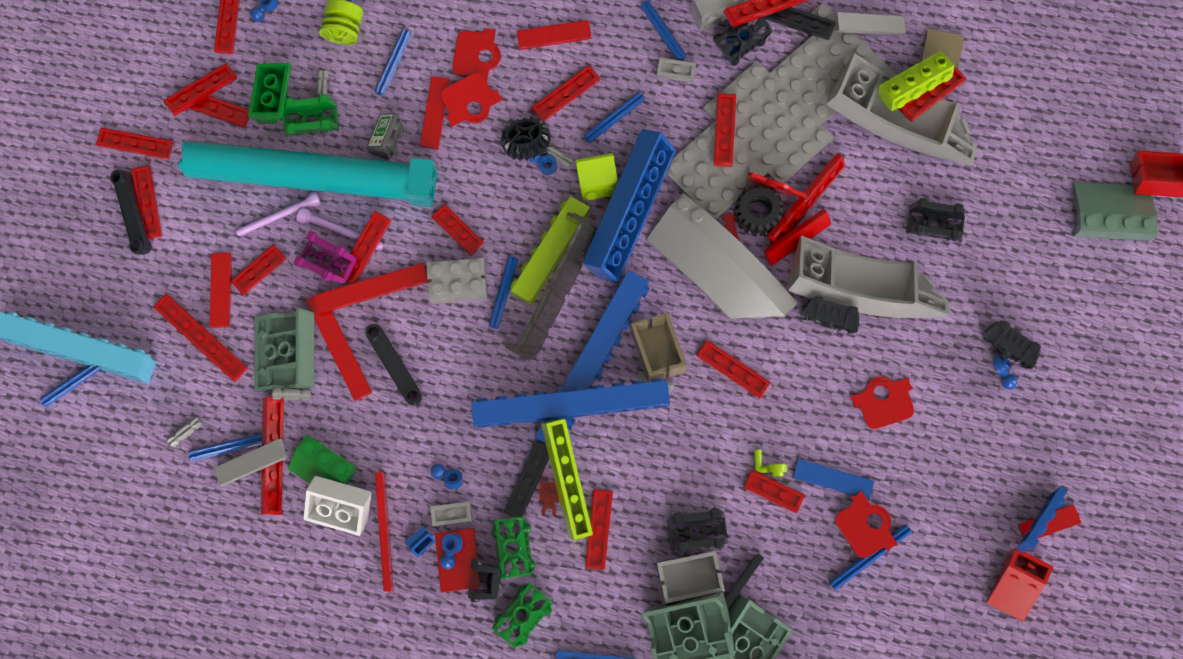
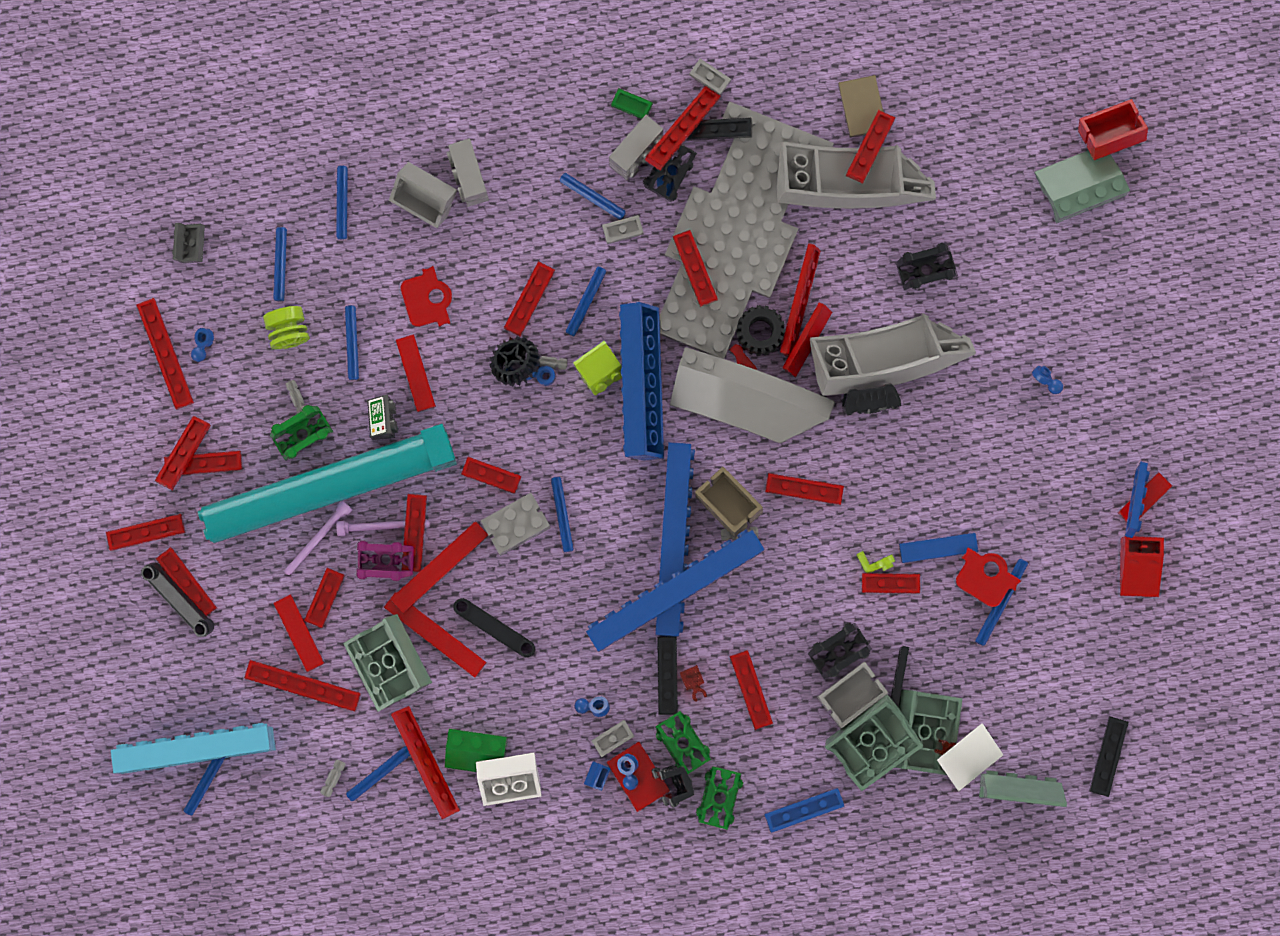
camera: 25 degrees left, 5 degrees up
(250, 462) = (410, 777): light grey tile -> none
(269, 92) = (253, 426): green slope -> none
(291, 394) = (414, 698): light grey axle -> none
(384, 532) = (560, 782): red tile -> none
(468, 90) = (438, 336): red piece -> none
(549, 252) = (587, 456): lime brick -> none
(554, 34) = (491, 246): red tile -> none
(556, 290) = (612, 493): clear smoke piece -> none
(567, 479) = (703, 659): lime brick -> none
(773, 184) = (767, 302): red piece -> none
(870, 24) = (783, 104): light grey tile -> none
(885, 412) = (956, 466): red piece -> none
(916, 81) = (850, 143): lime brick -> none
(1012, 344) = (1043, 351): black piece -> none

